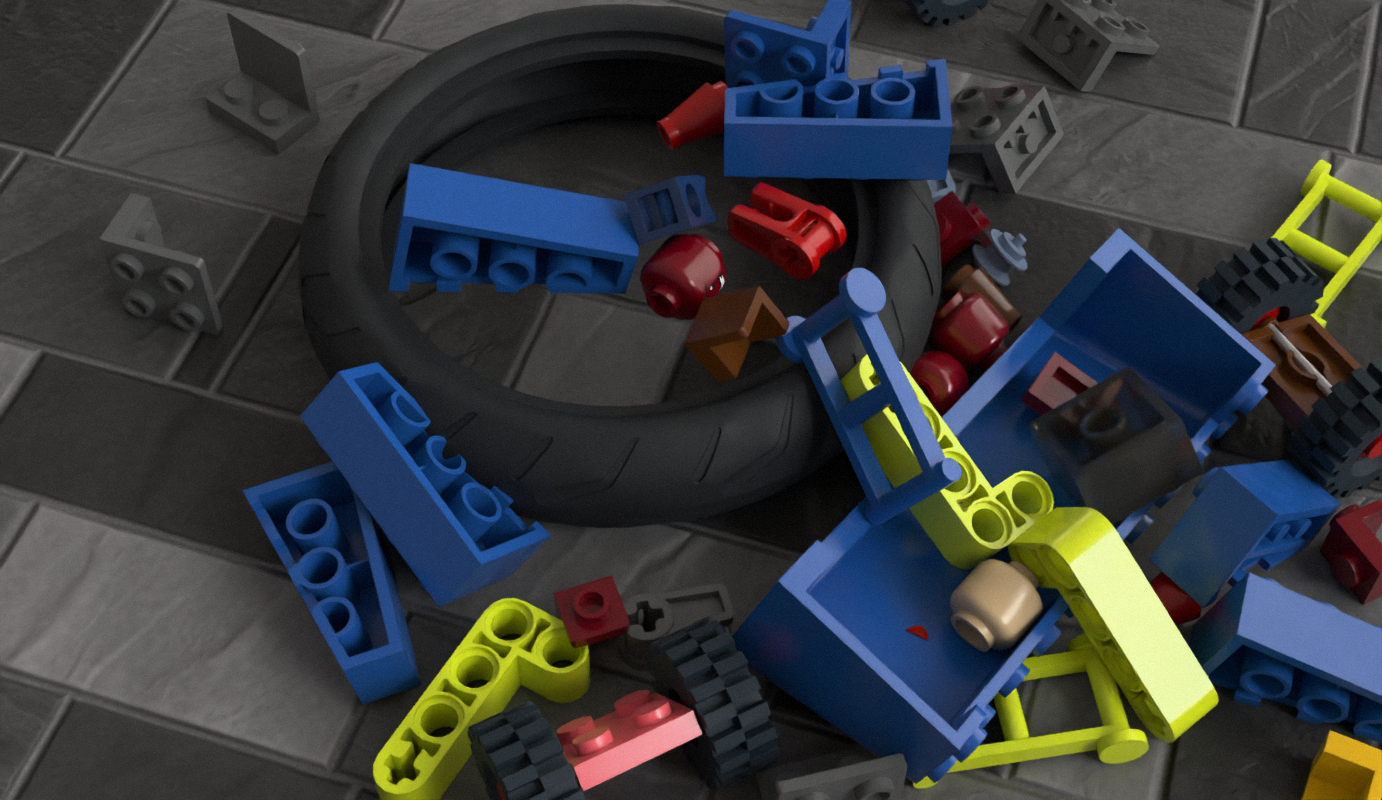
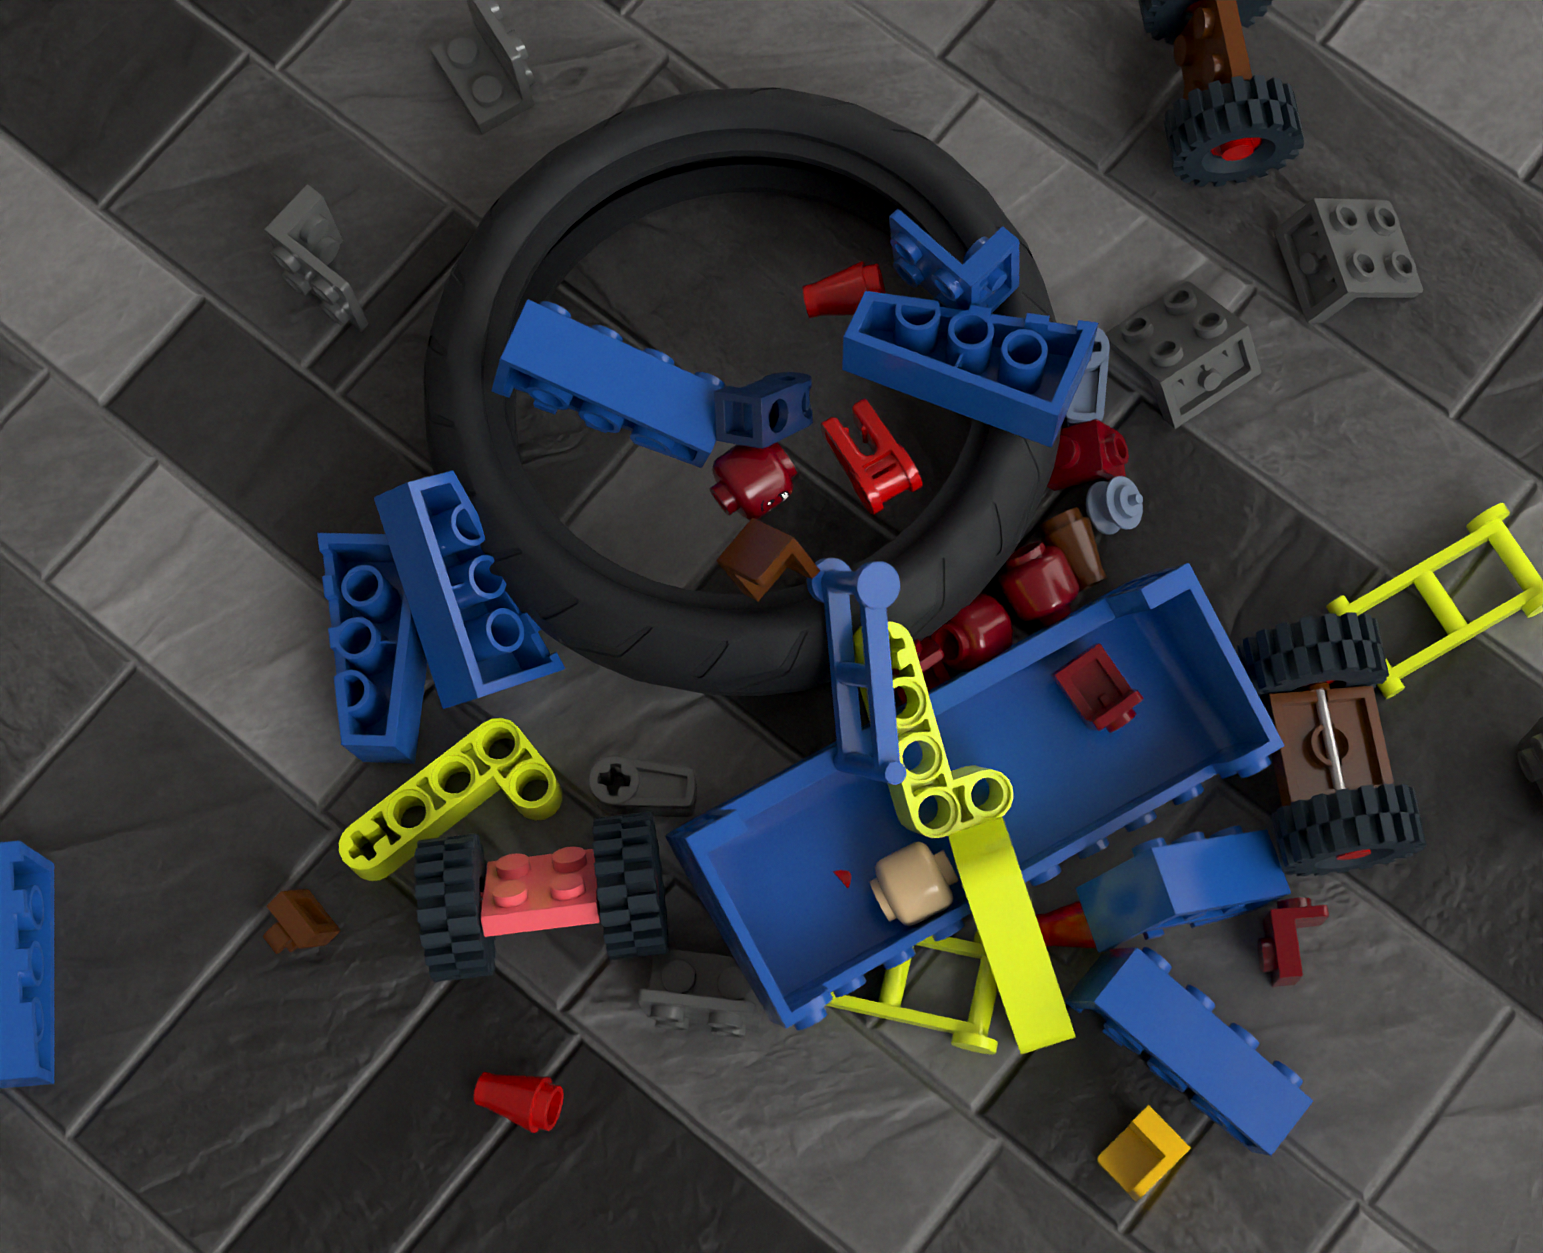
camera: 30 degrees right, 20 degrees up
(591, 612) = (570, 759): dark red bracket -> none
(1116, 446) = (1089, 775): clear smoke brick -> none

